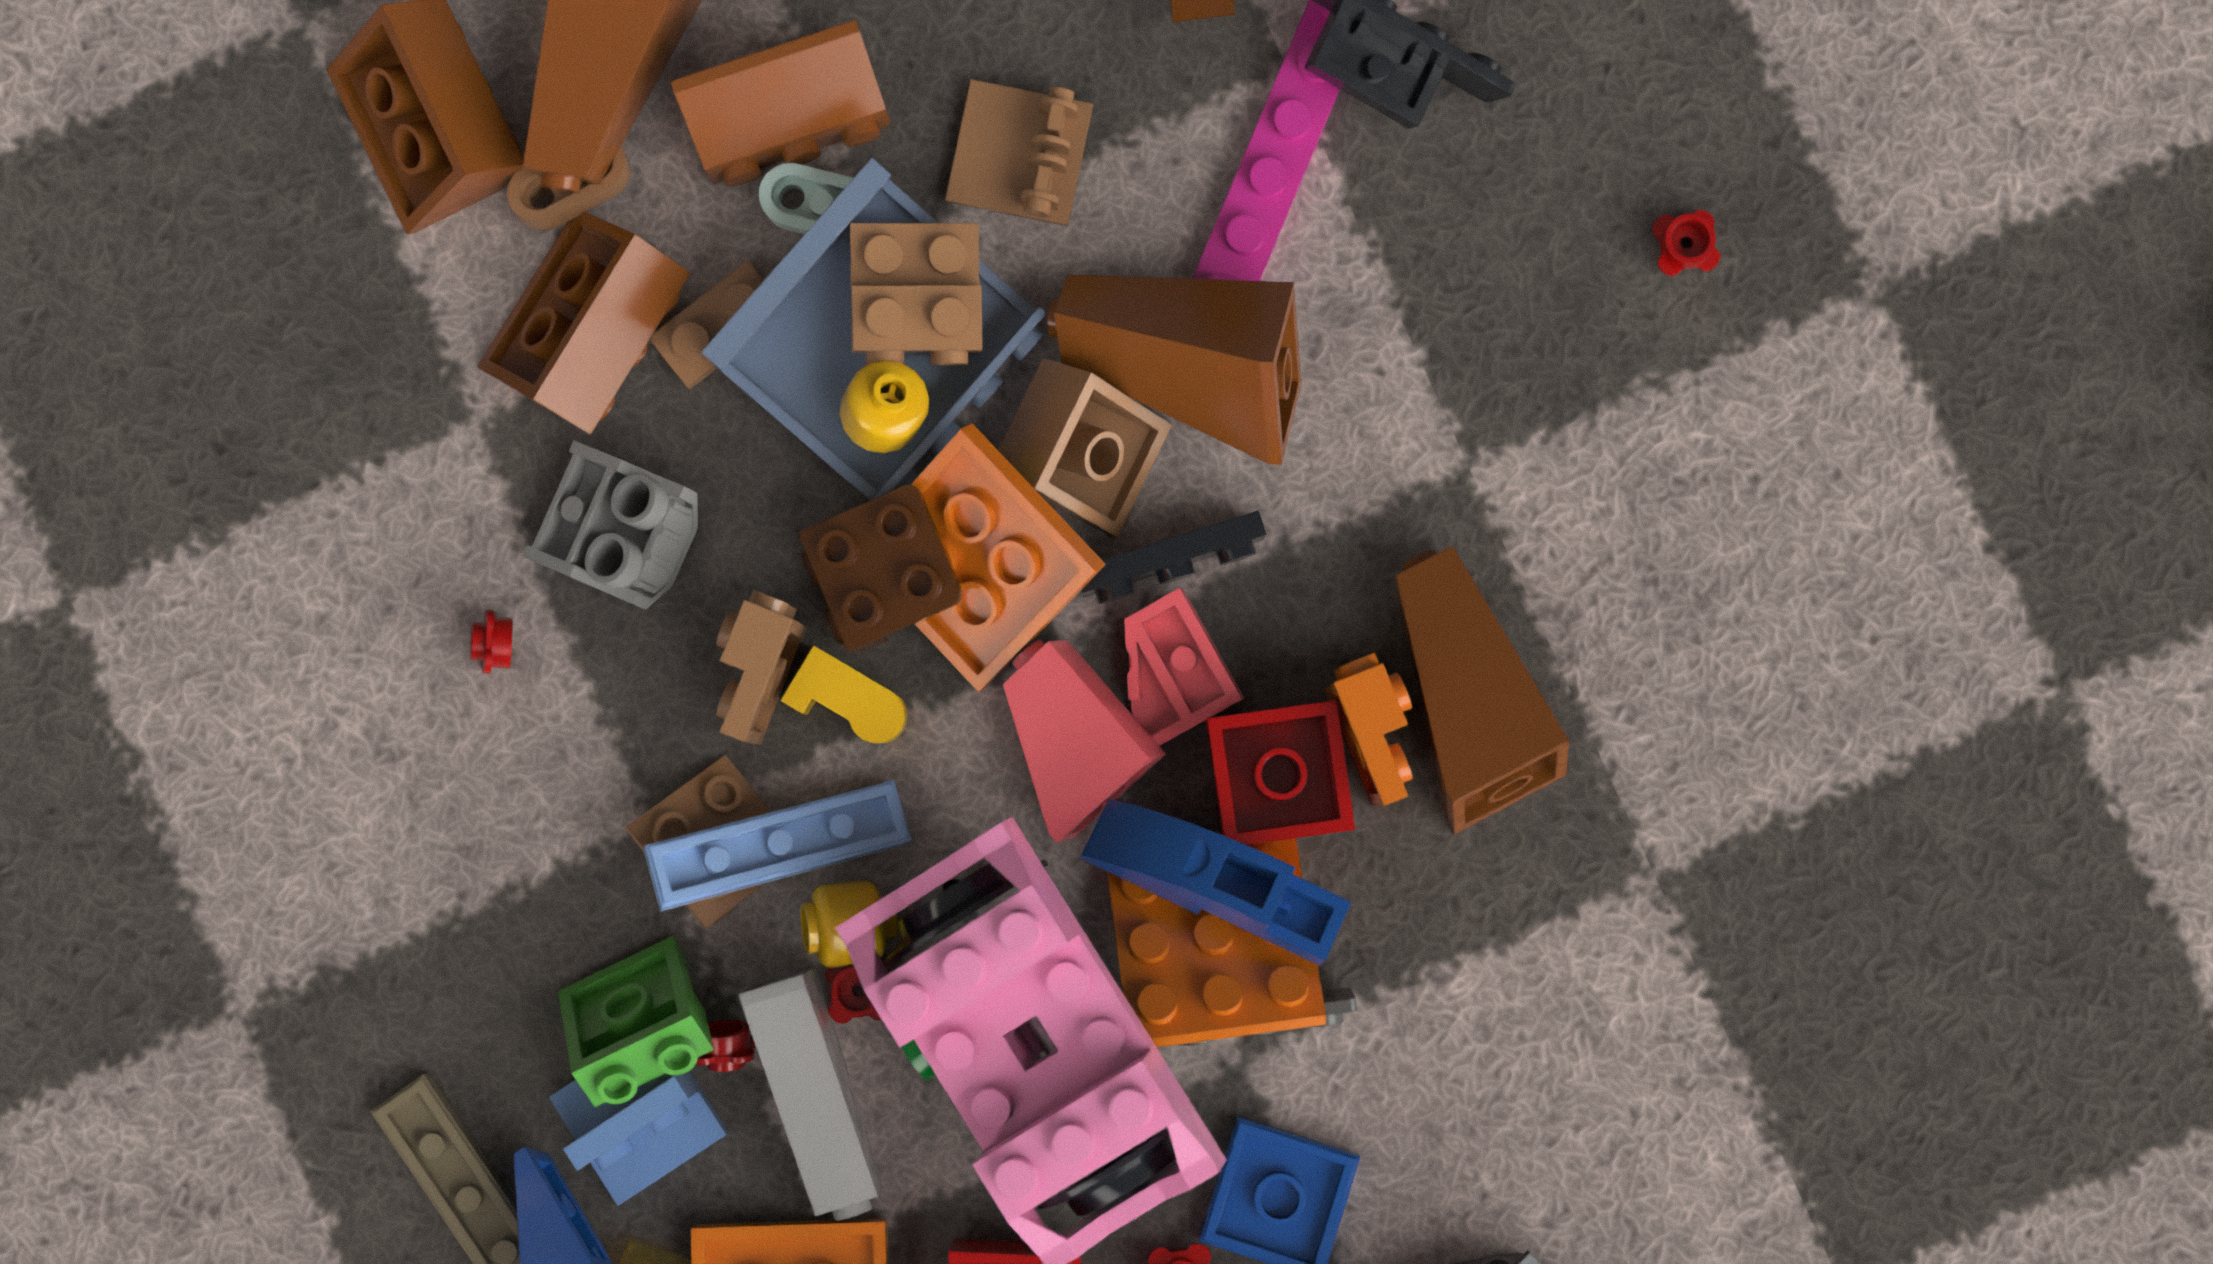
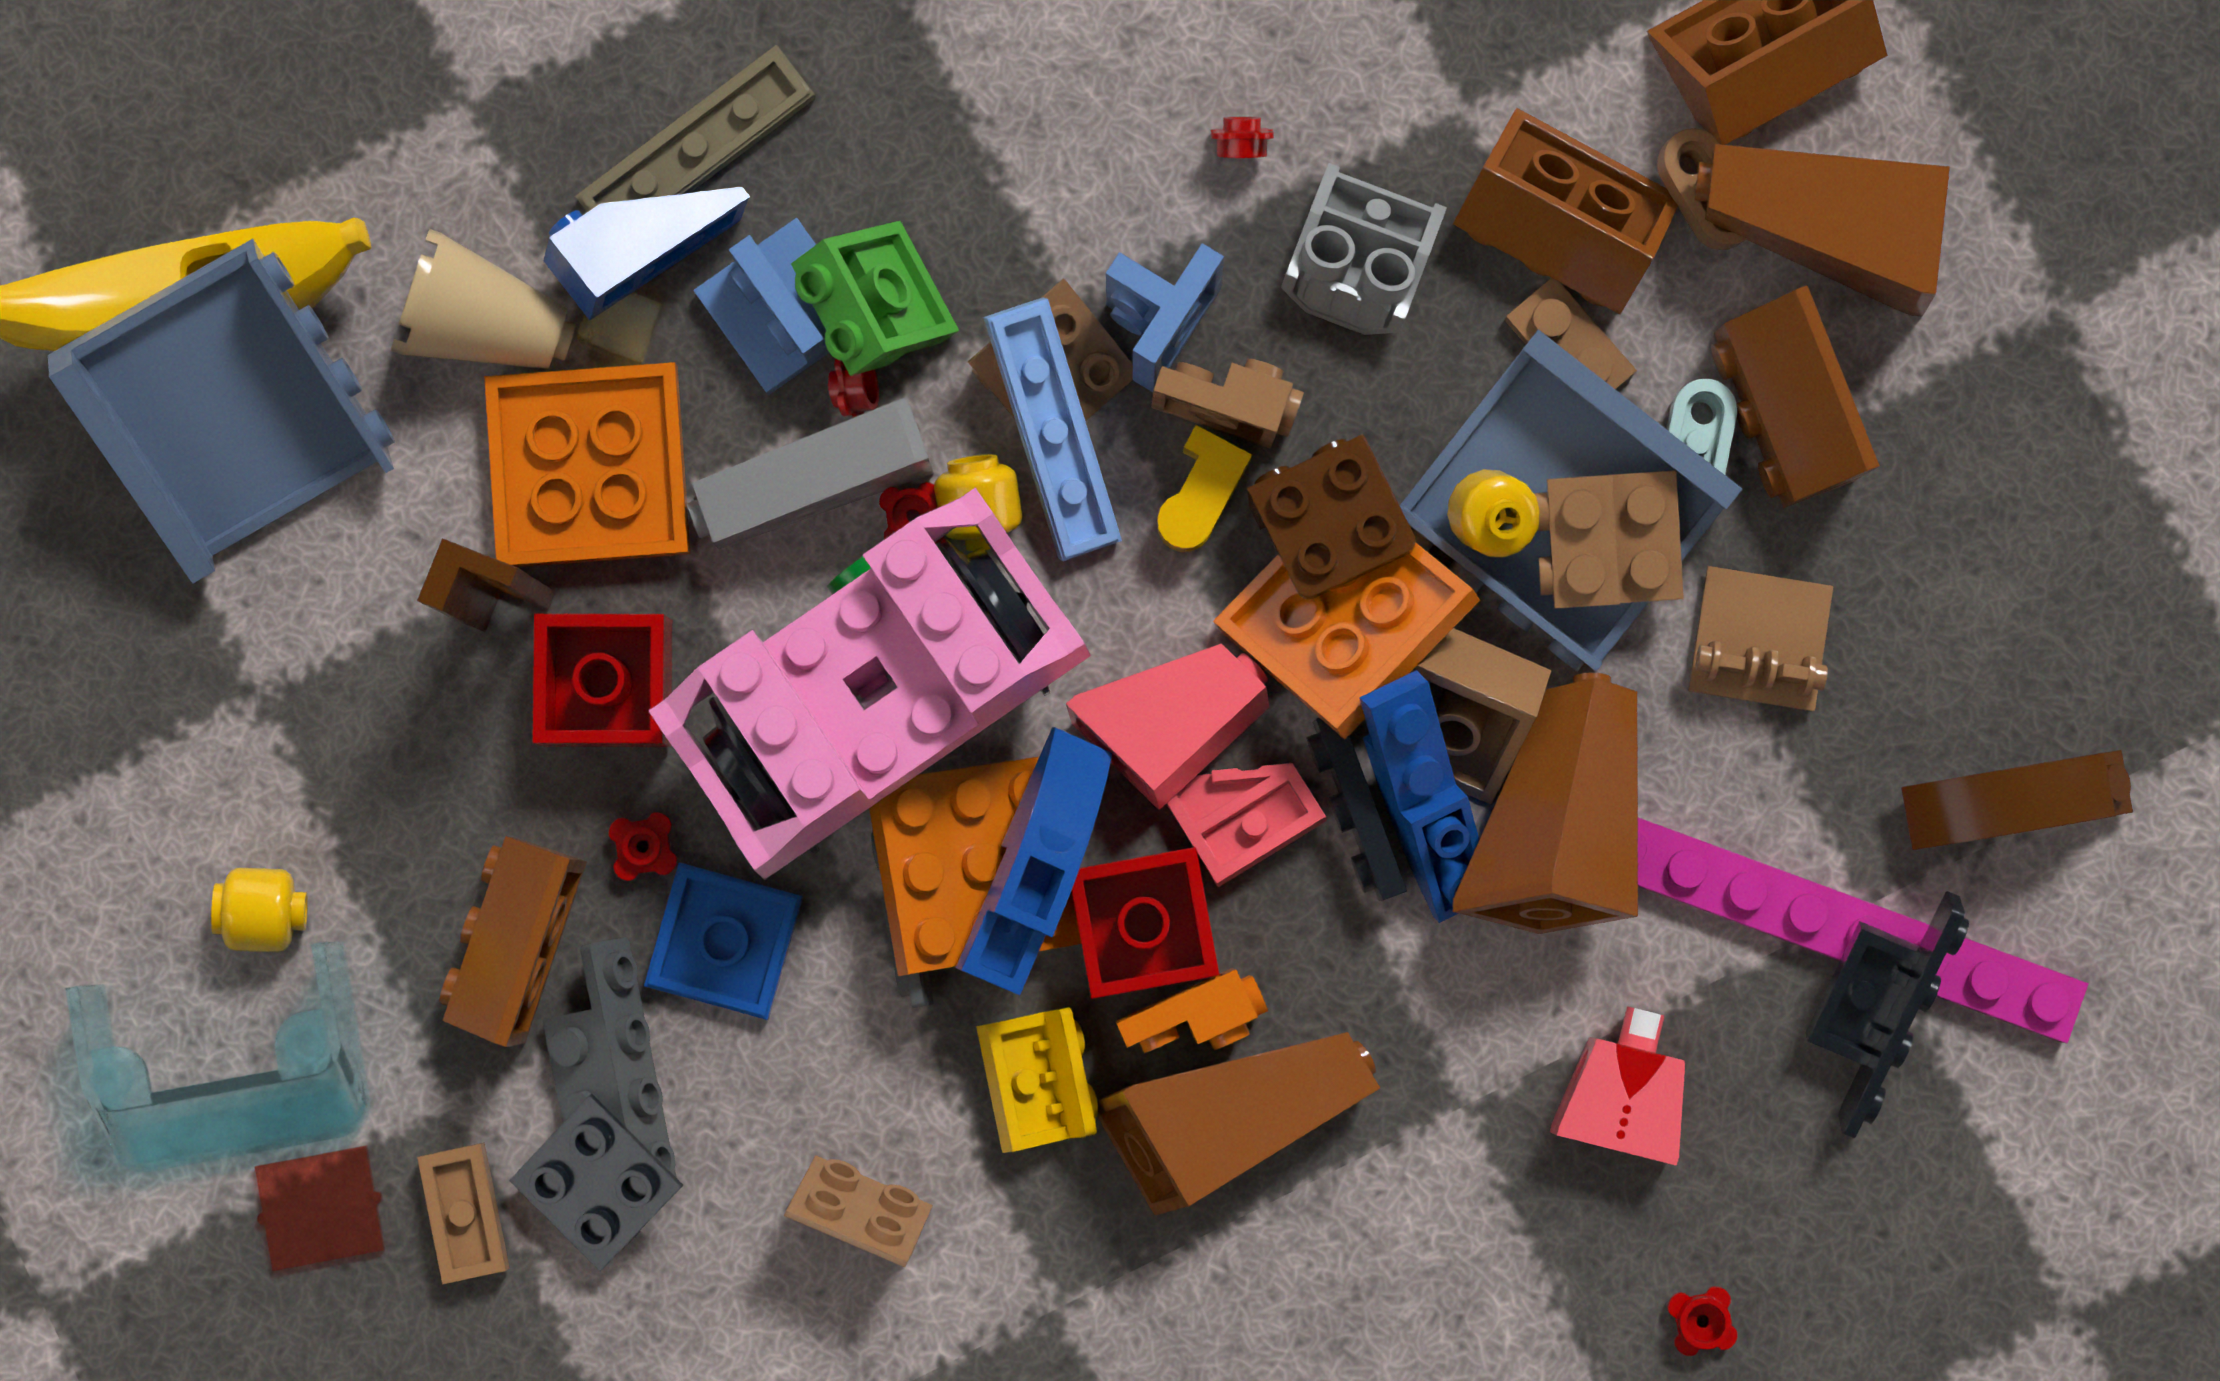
camera: 80 degrees right, 0 degrees up
(663, 726) = (1164, 311): none -> medium blue bracket
(1156, 492) = (1420, 788): none -> blue slope
(1430, 886) = (1038, 1079): none -> yellow bracket
(1464, 305) = (1626, 1093): none -> coral torso
(1557, 1072) = (859, 1210): none -> medium nougat hinge

